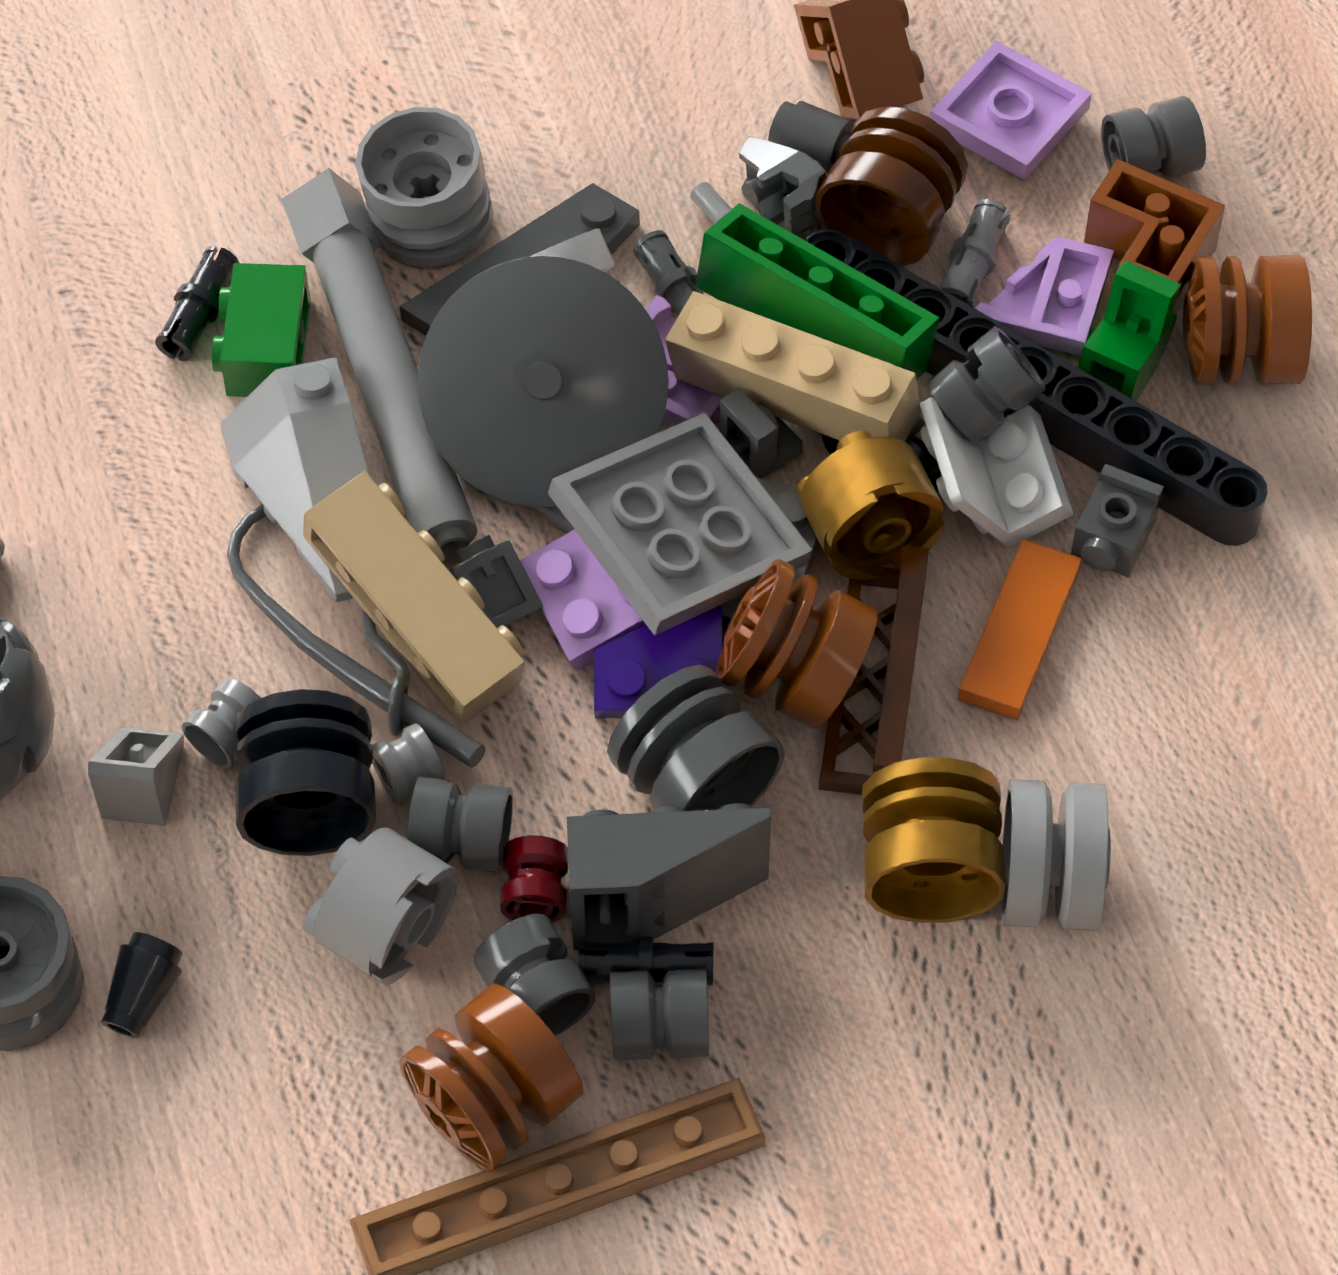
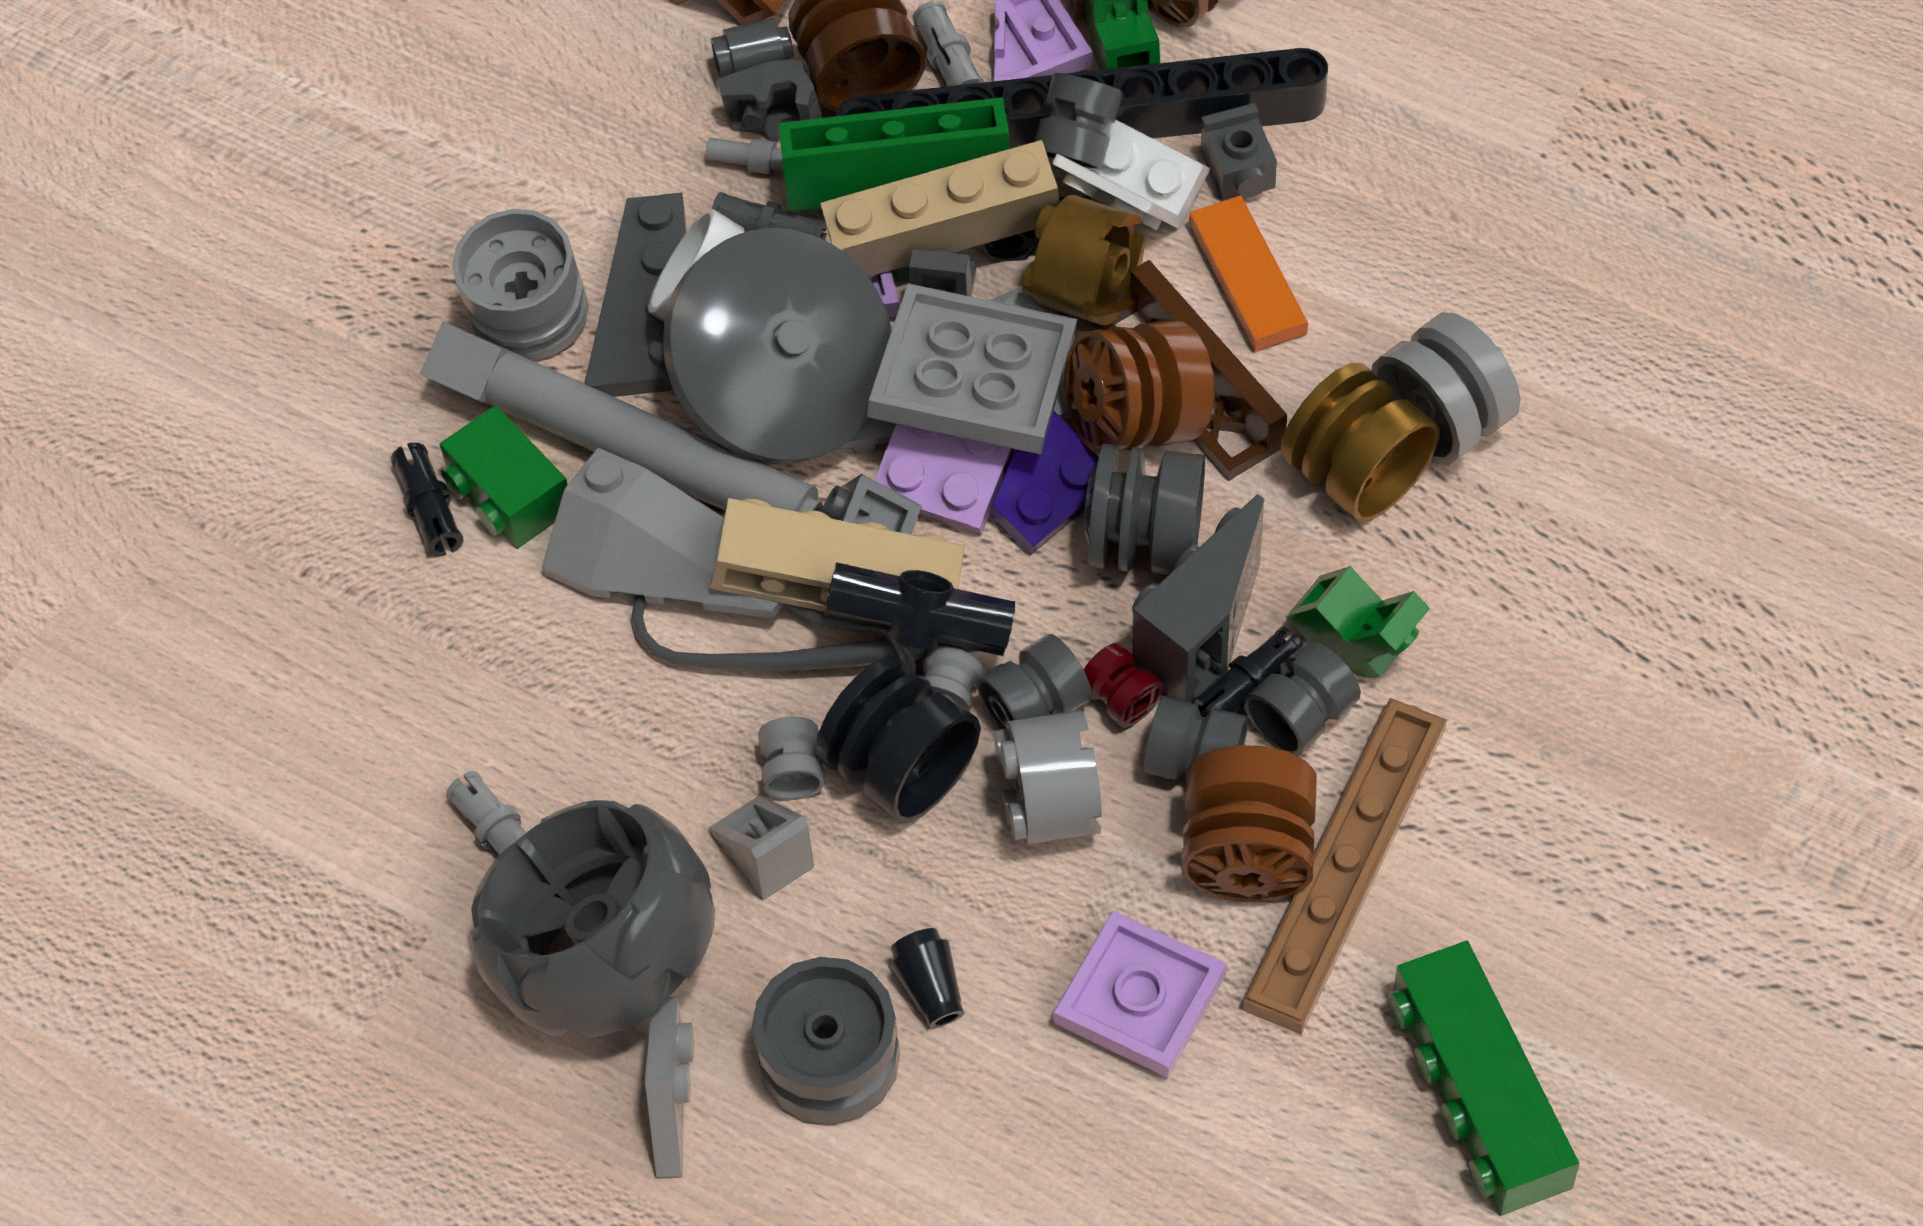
camera: 40 degrees left, 0 degrees up
(277, 1141) = (1140, 993): none -> lavender plate
(421, 681) = (920, 609): none -> black piece
(773, 990) = (1356, 622): none -> green brick

